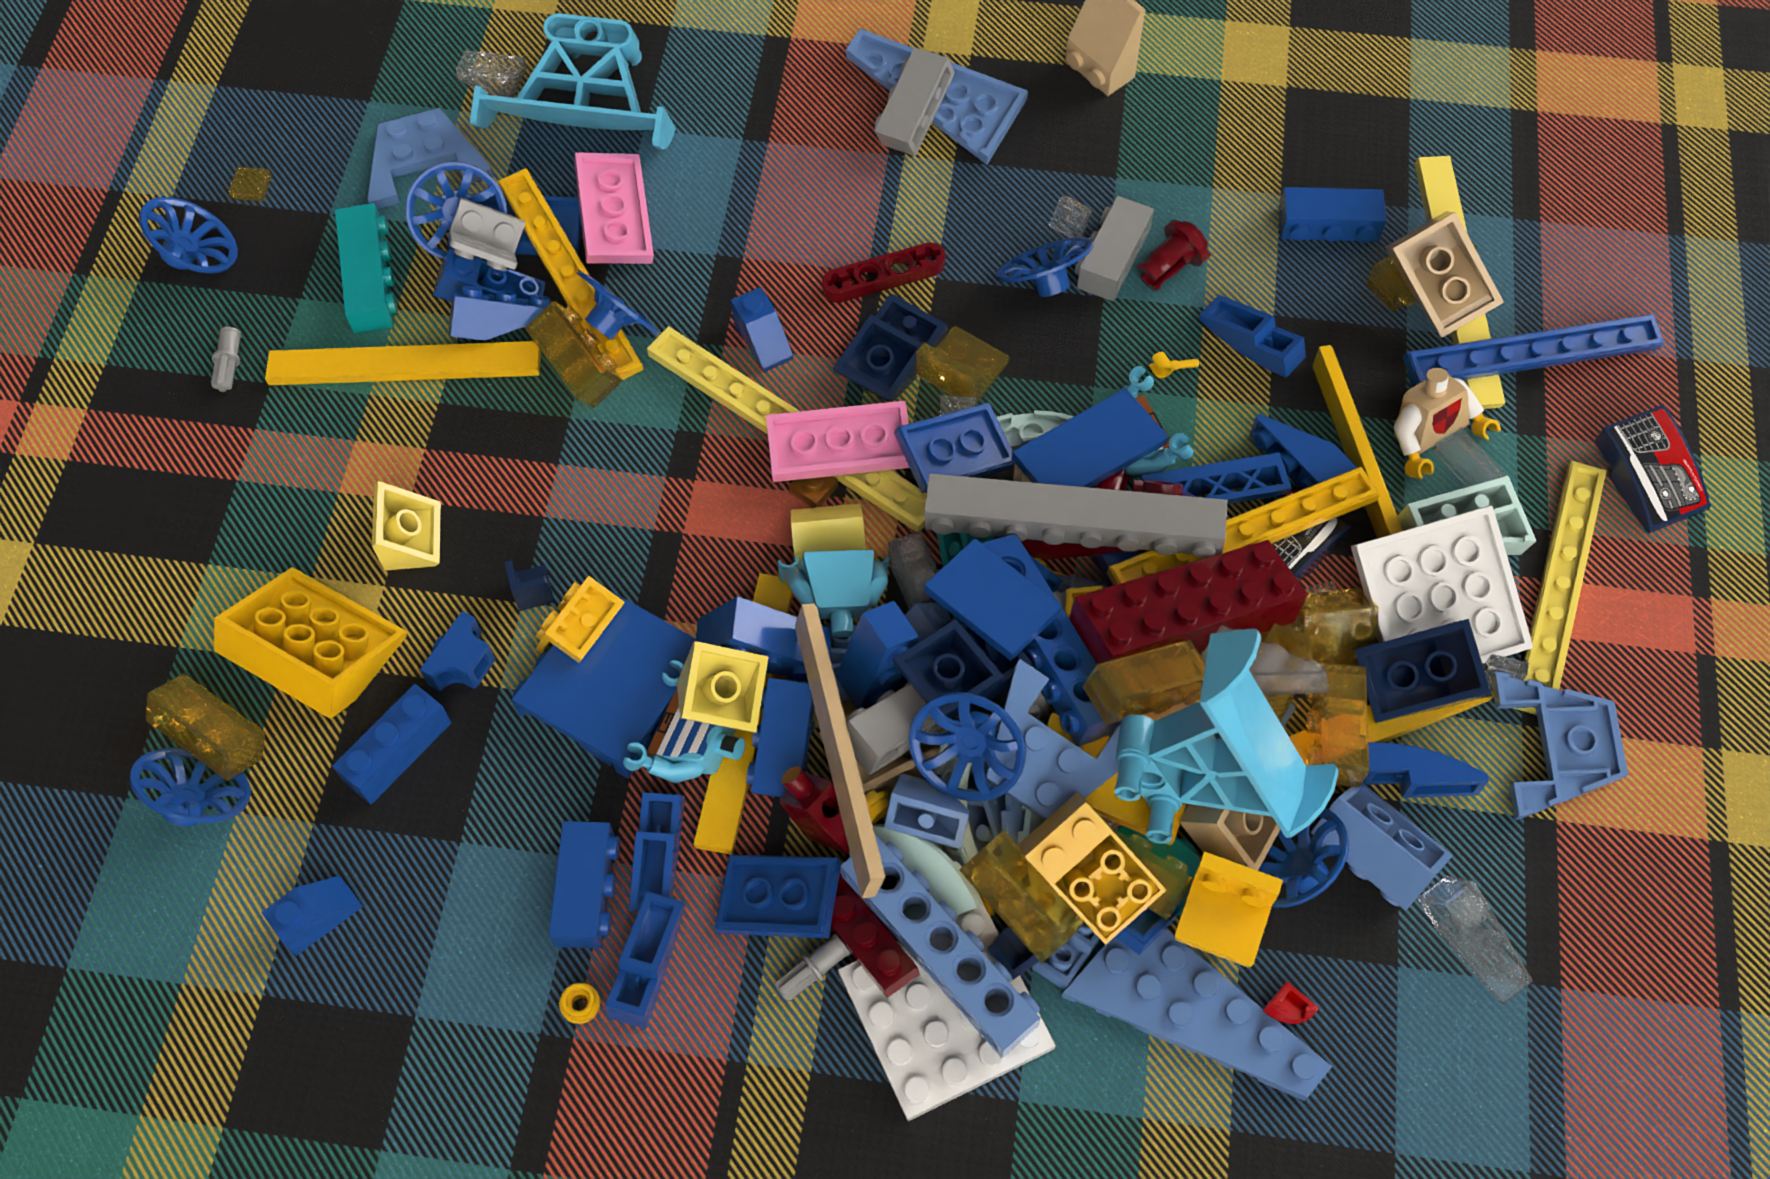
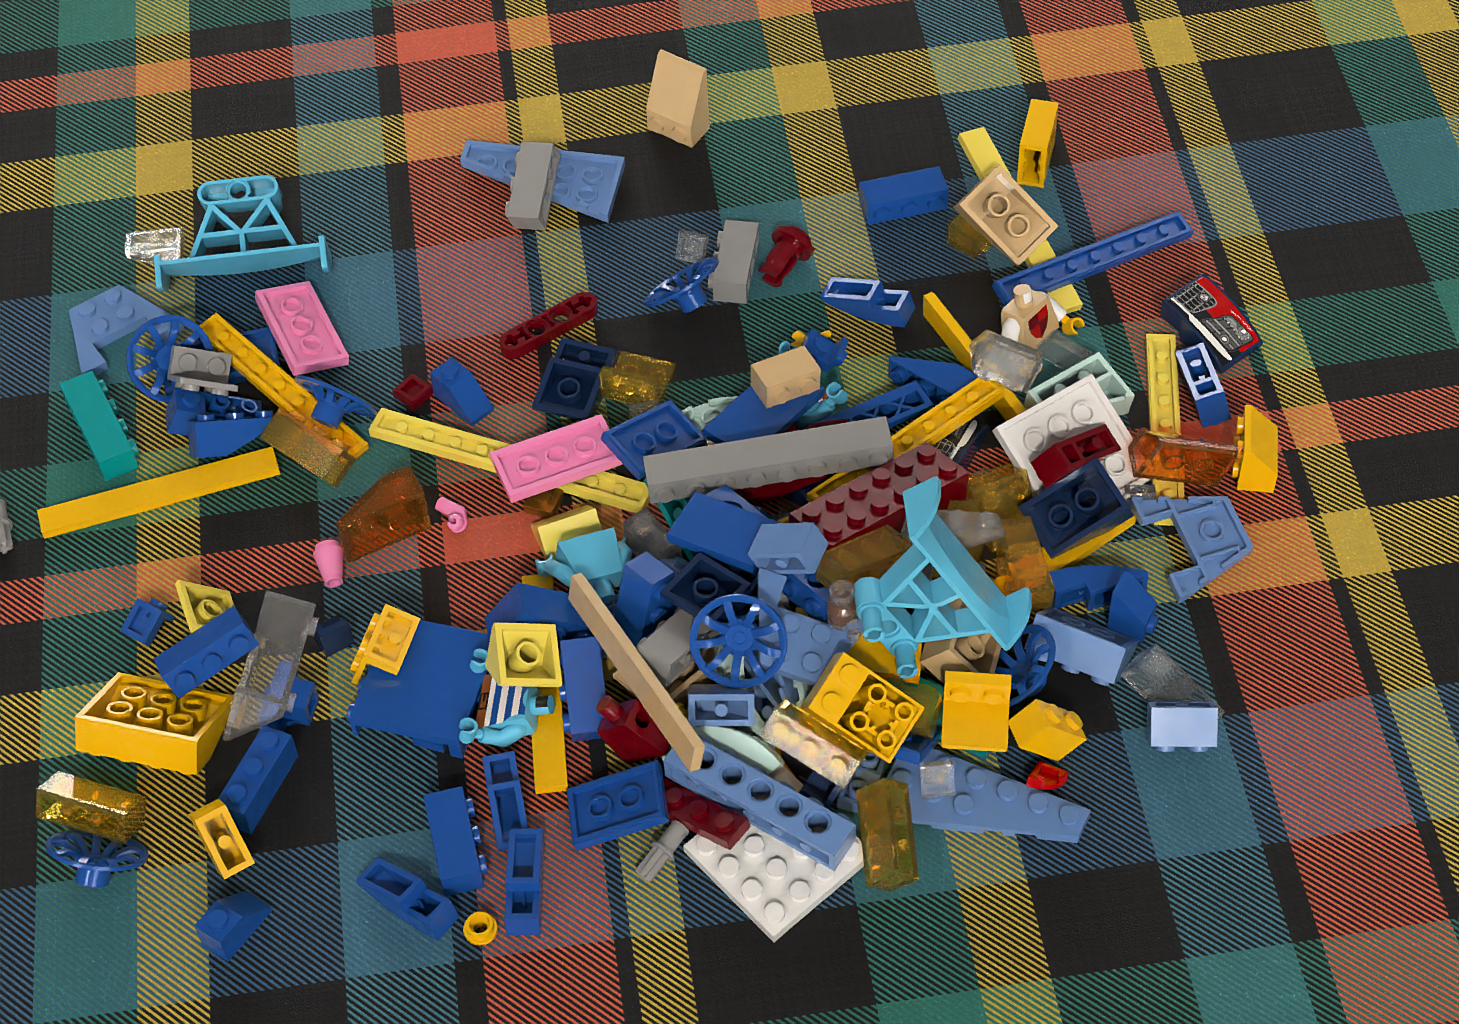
camera: 15 degrees left, 10 degrees down
(325, 811) = (221, 838): none -> yellow brick
(339, 513) = (146, 620): none -> blue bracket
(383, 575) = (206, 652): none -> blue brick
(443, 616) = (271, 666): none -> clear windscreen
(511, 941) = (408, 898): none -> blue slope
(556, 498) = (329, 561): none -> bright pink cone
(627, 460) = (384, 515): none -> clear orange slope
(711, 314) = (413, 392): none -> dark red tile
(712, 475) = (456, 514): none -> bright pink arm
(1059, 646) = (788, 548): none -> medium blue brick
(1077, 1033) = (887, 835): none -> clear yellow brick
(1101, 742) = (842, 609): none -> clear piece
(1126, 413) = (785, 376): none -> tan brick
(1157, 977) = (936, 778): none -> clear tile
(1182, 384) = (825, 351): none -> blue bracket
(1307, 952) = (1047, 730): none -> yellow brick
(1391, 460) = (1005, 361): none -> clear slope
(1442, 604) = (1073, 453): none -> dark red slope
(1457, 819) = (1132, 609): none -> blue slope
(1476, 990) = (1182, 725): none -> brick
(1507, 188) = (1037, 143): none -> yellow brick
(1572, 637) = (1181, 457): none -> clear orange slope
(1623, 546) = (1203, 385): none -> blue slope
(1664, 652) = (1258, 463): none -> yellow slope

